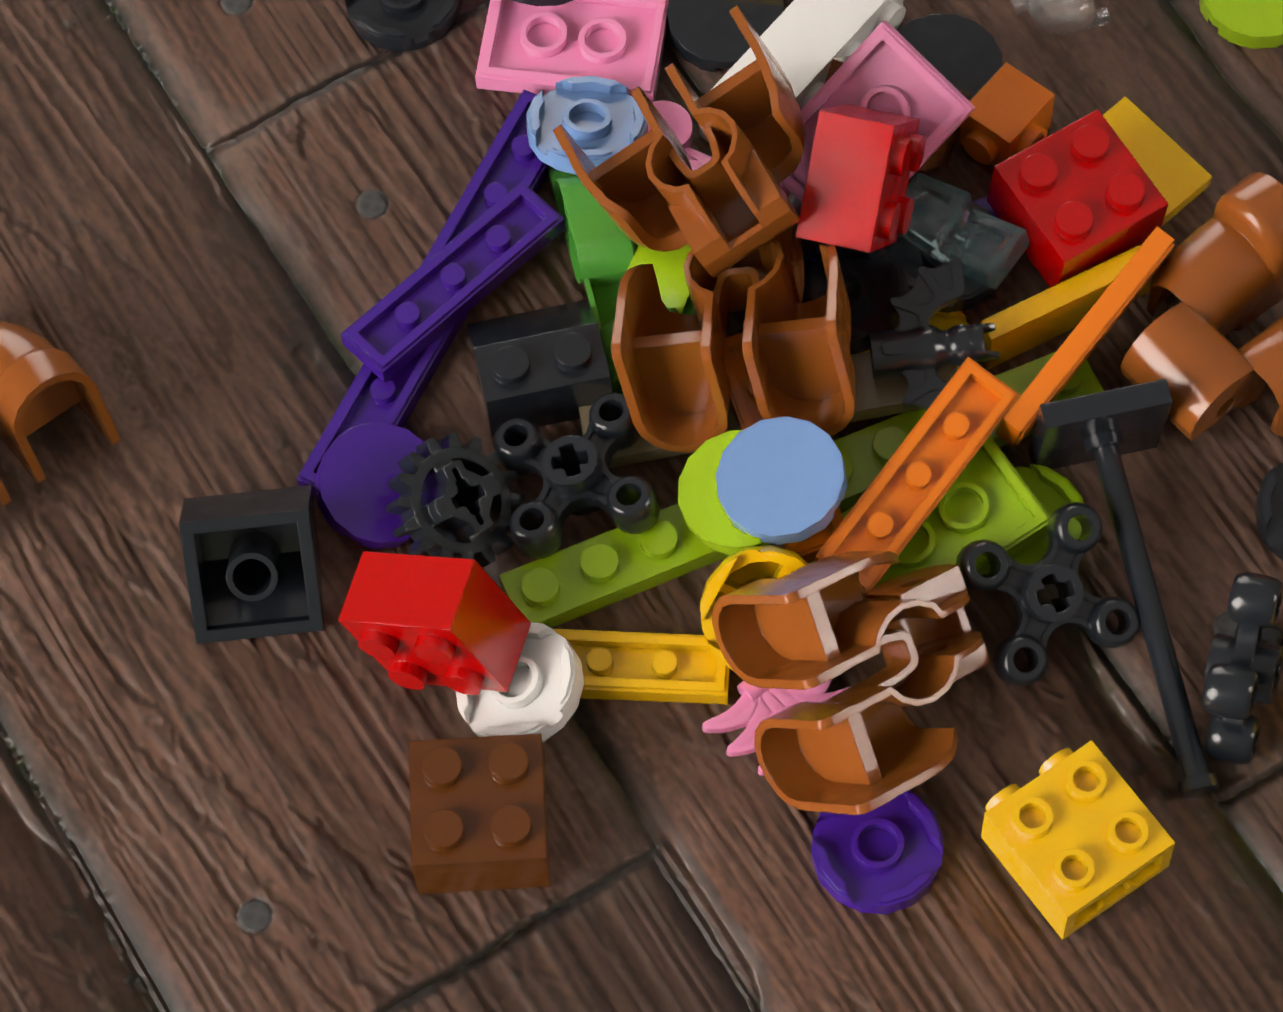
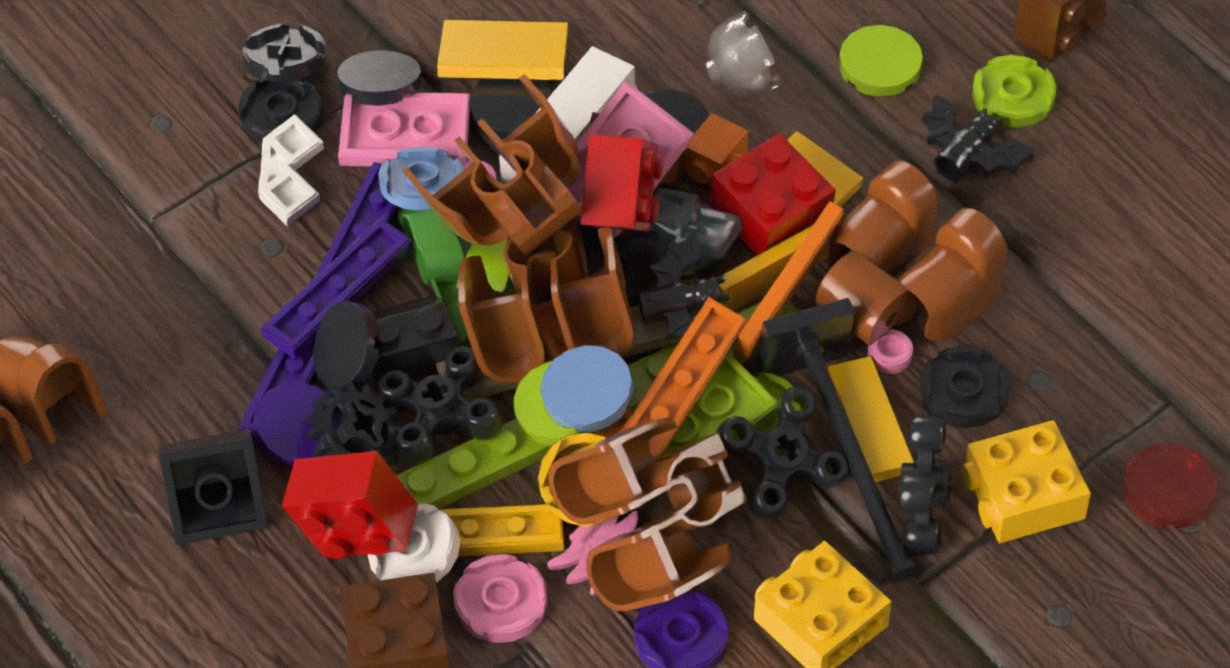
camera: 10 degrees left, 10 degrees down
(396, 69) = (282, 154): none -> white tile
(454, 376) = (346, 345): none -> black tile
(632, 769) = (500, 598): none -> bright pink tile
(1180, 547) = (871, 417): none -> yellow tile
(1221, 449) = (891, 352): none -> bright pink tile

